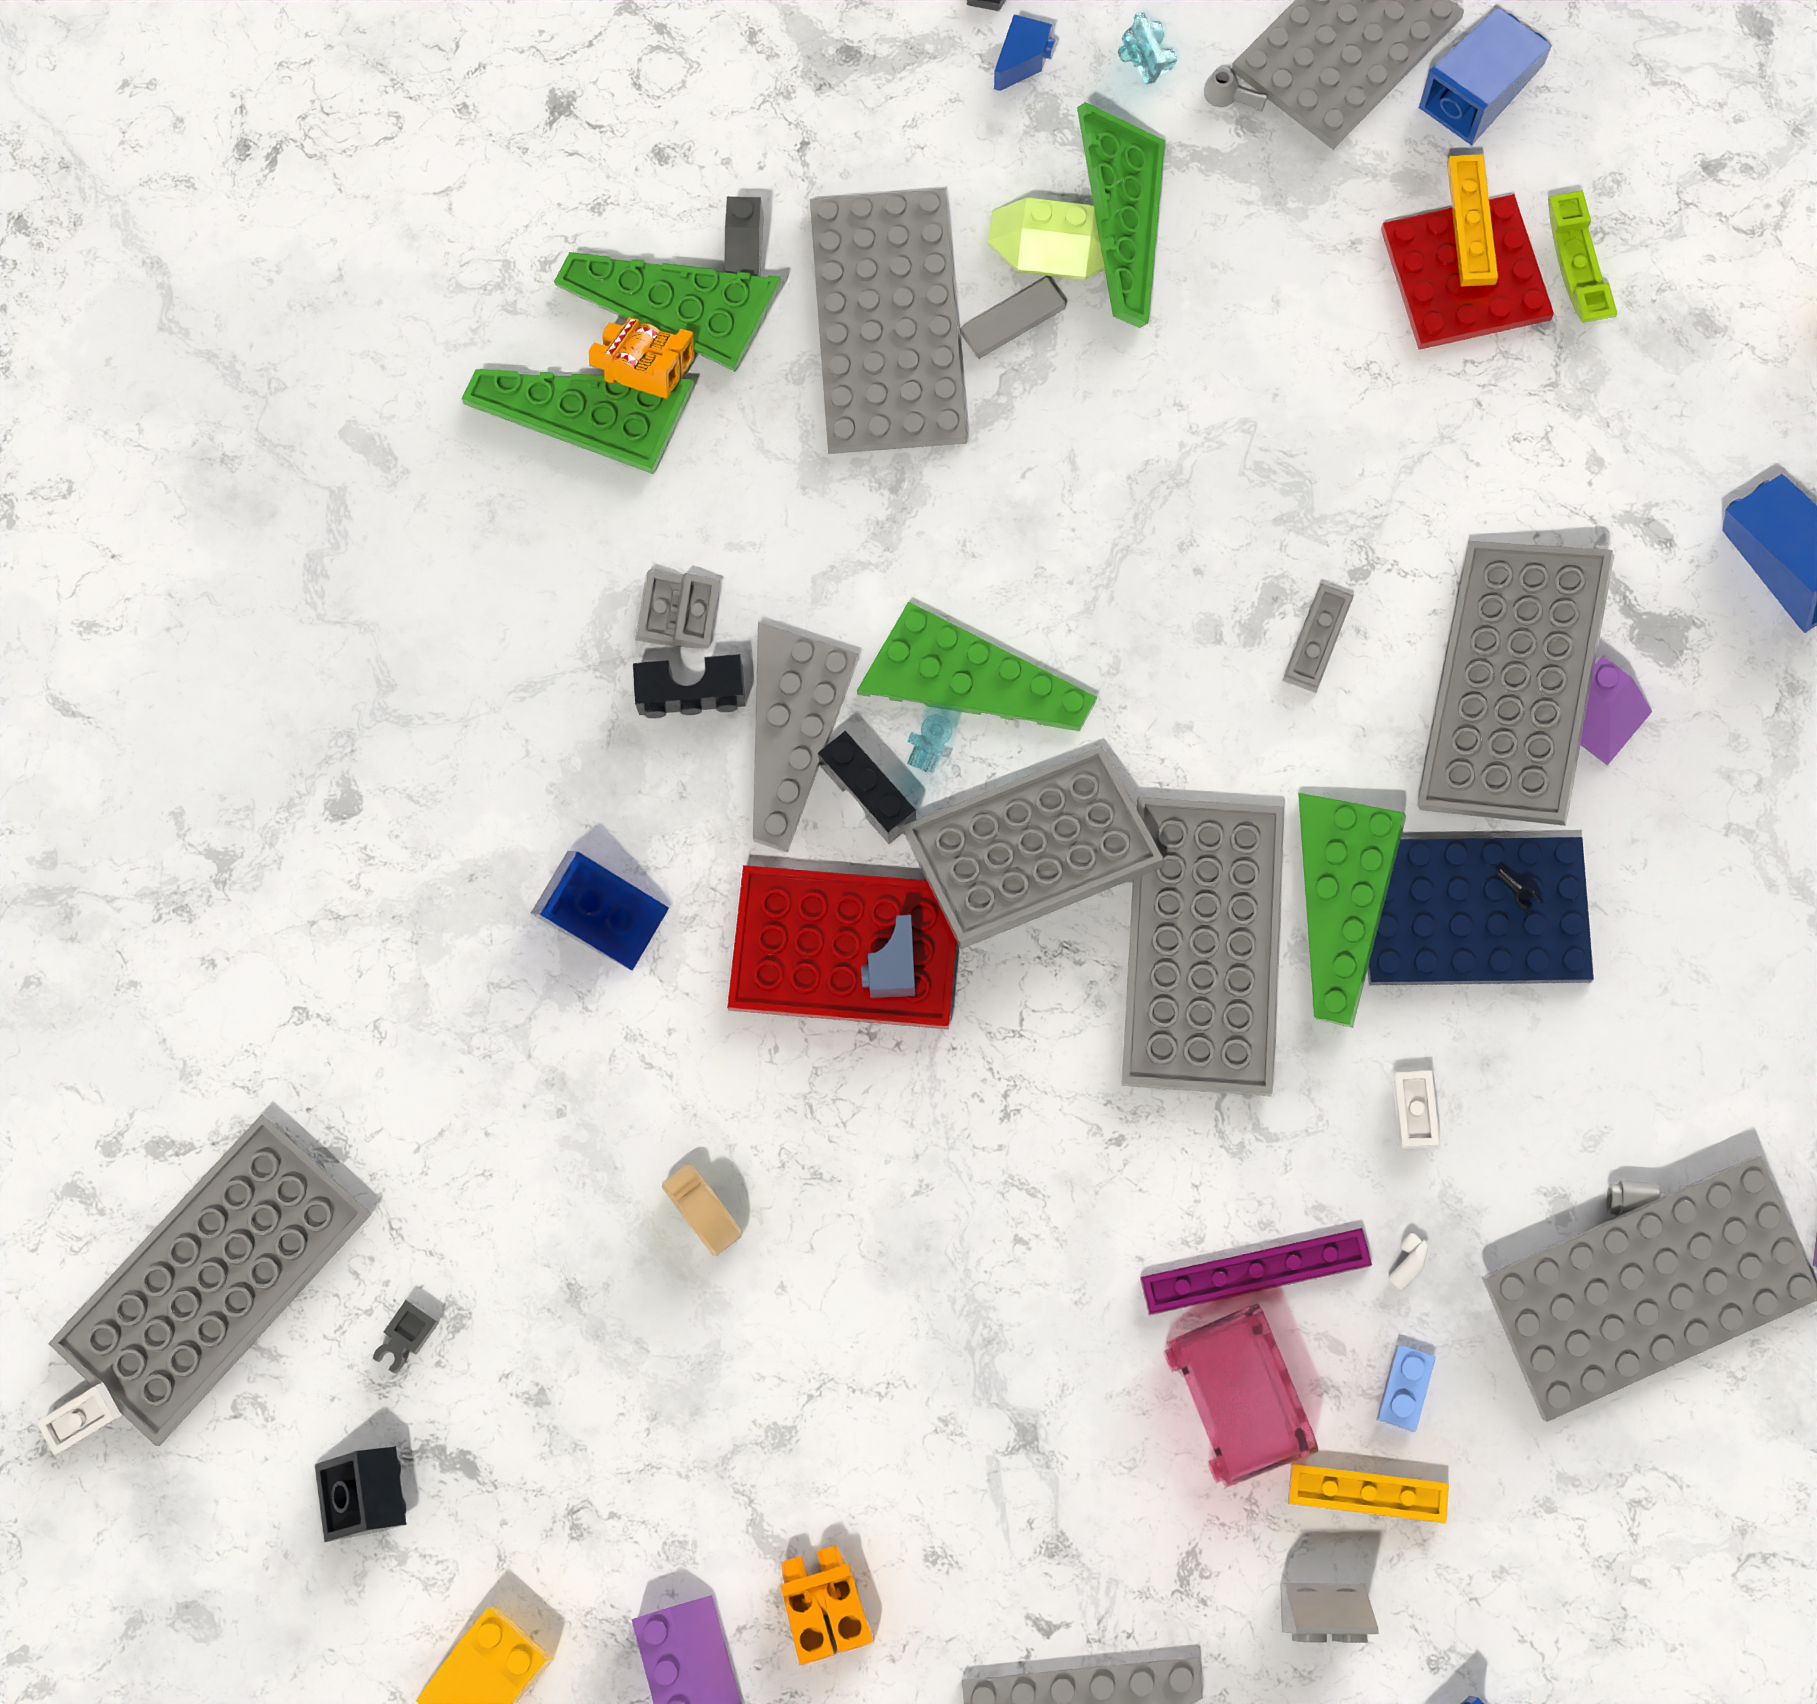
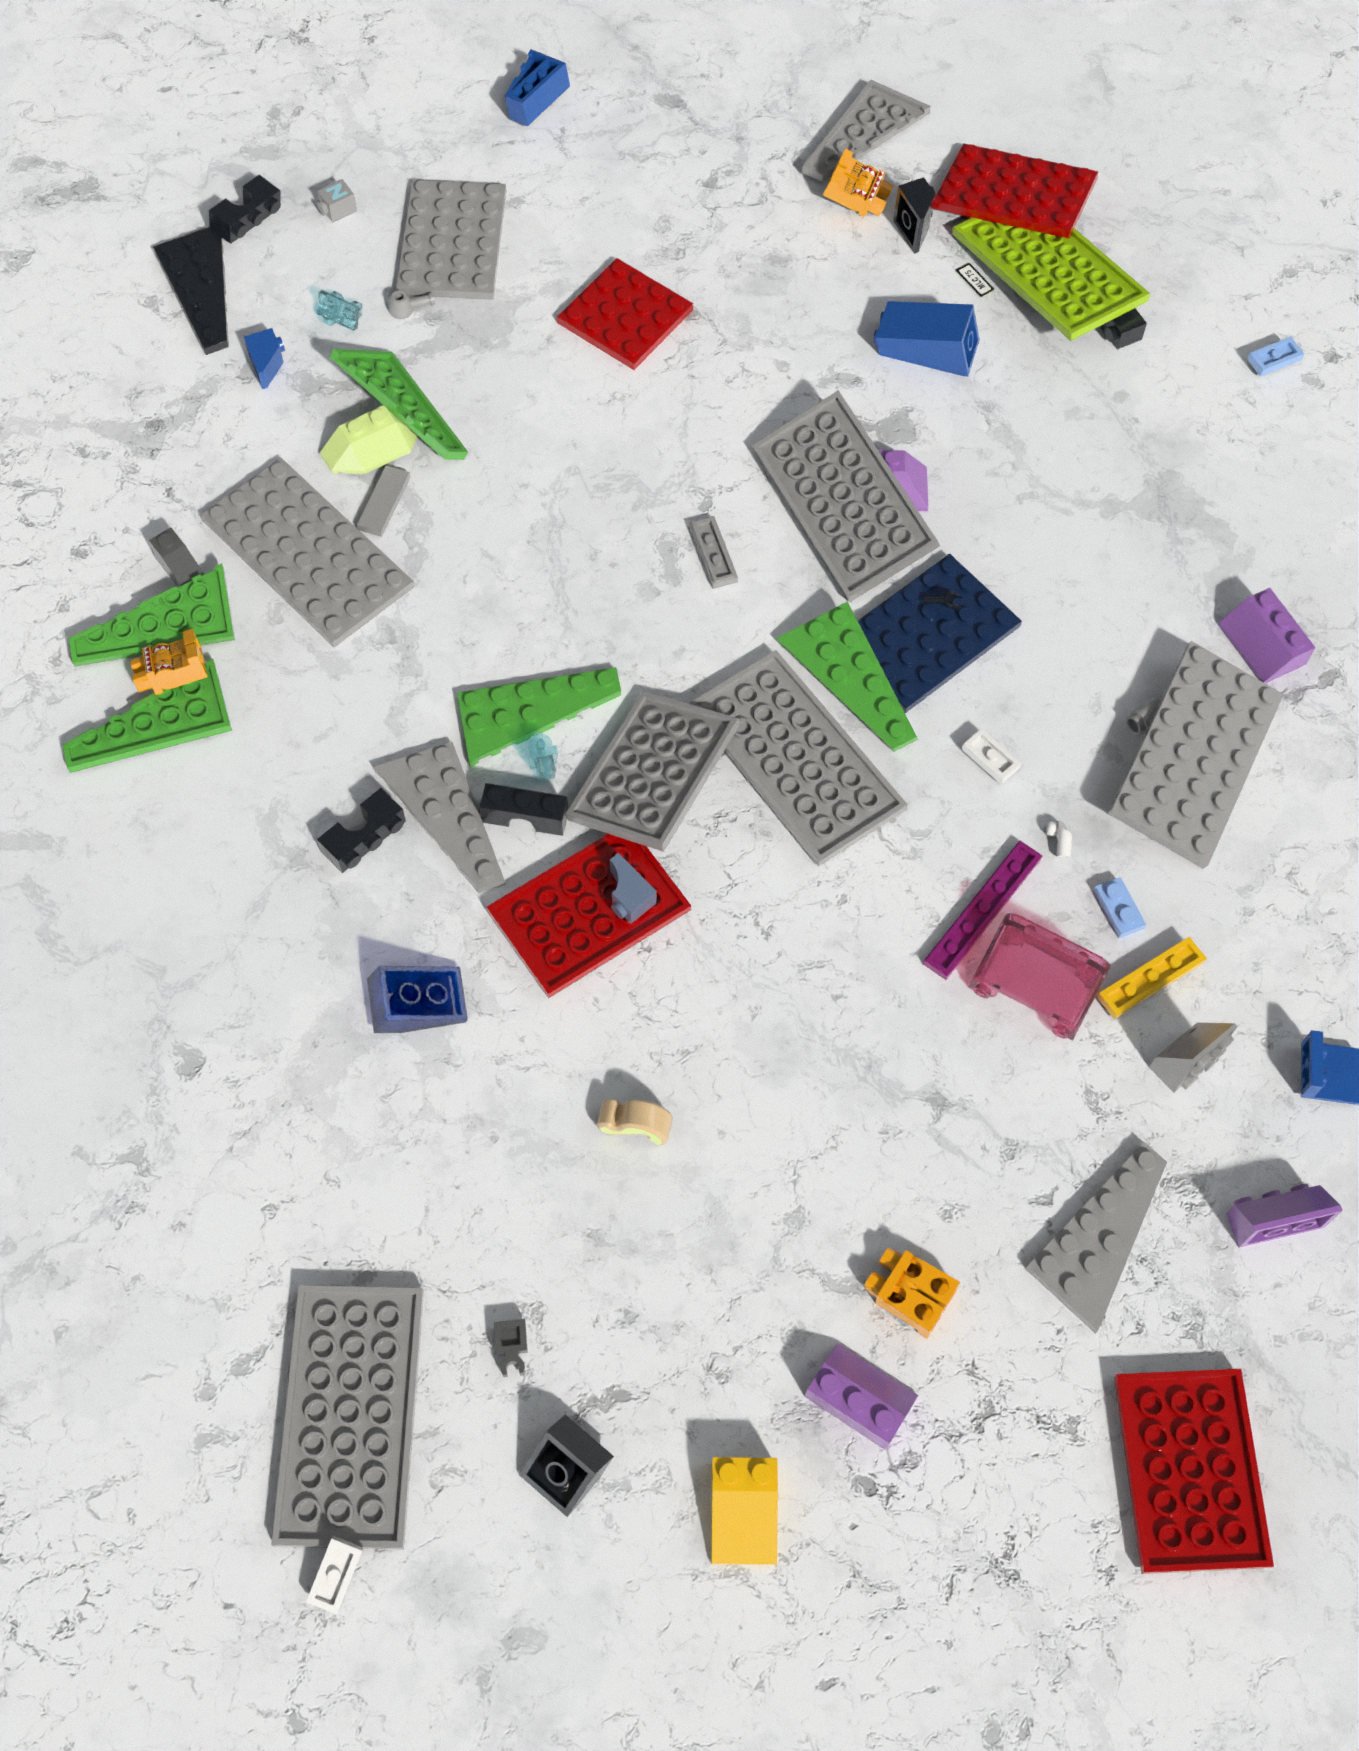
camera: 45 degrees left, 10 degrees down
(677, 610) = (315, 795): light grey slope -> none
(1472, 220) = (608, 281): yellow plate -> none
(1483, 75) = (546, 209): slope -> none
(1578, 259) = (679, 269): lime slope -> none

